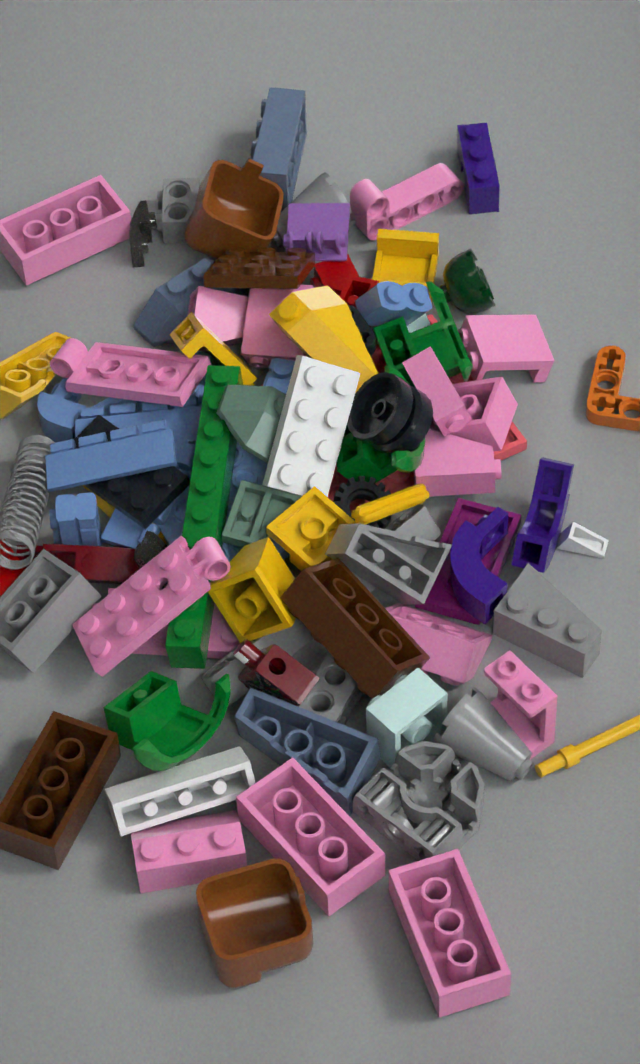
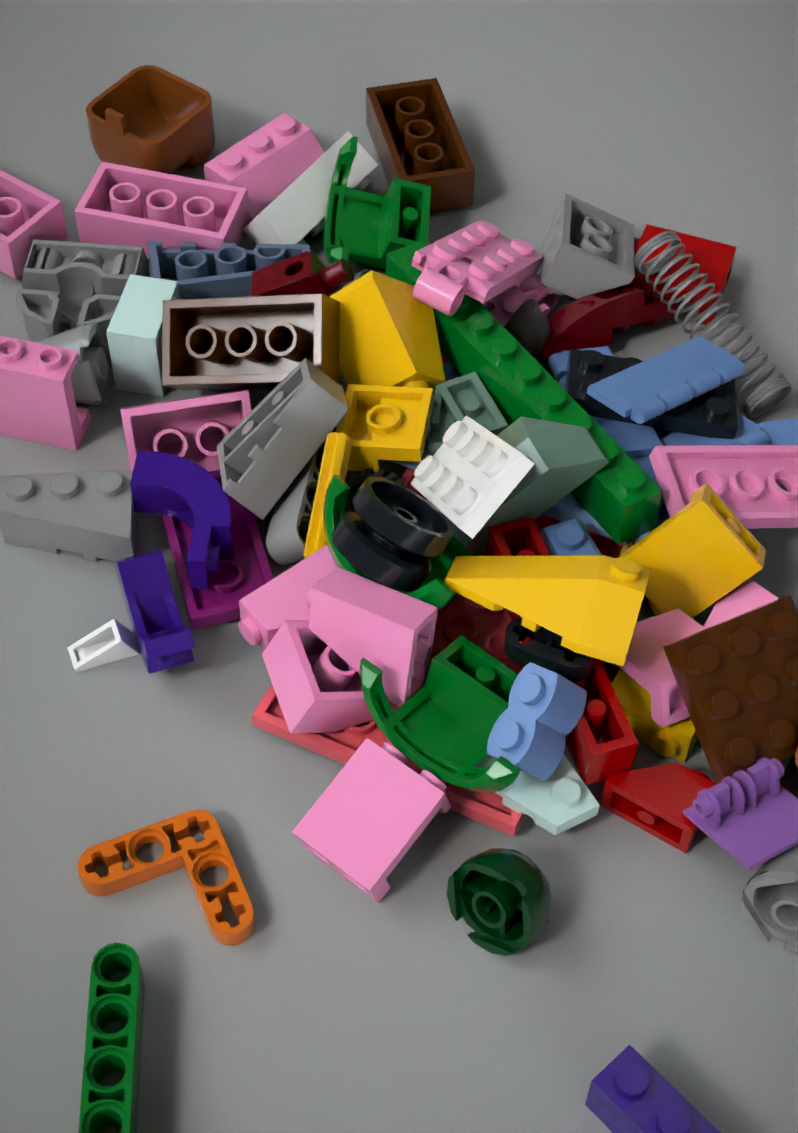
camera: 140 degrees right, 0 degrees up
(76, 520) = (638, 325): medium blue brick -> none
(403, 201) = (717, 996): bright pink beam -> none
(406, 257) = (611, 885): yellow panel -> none

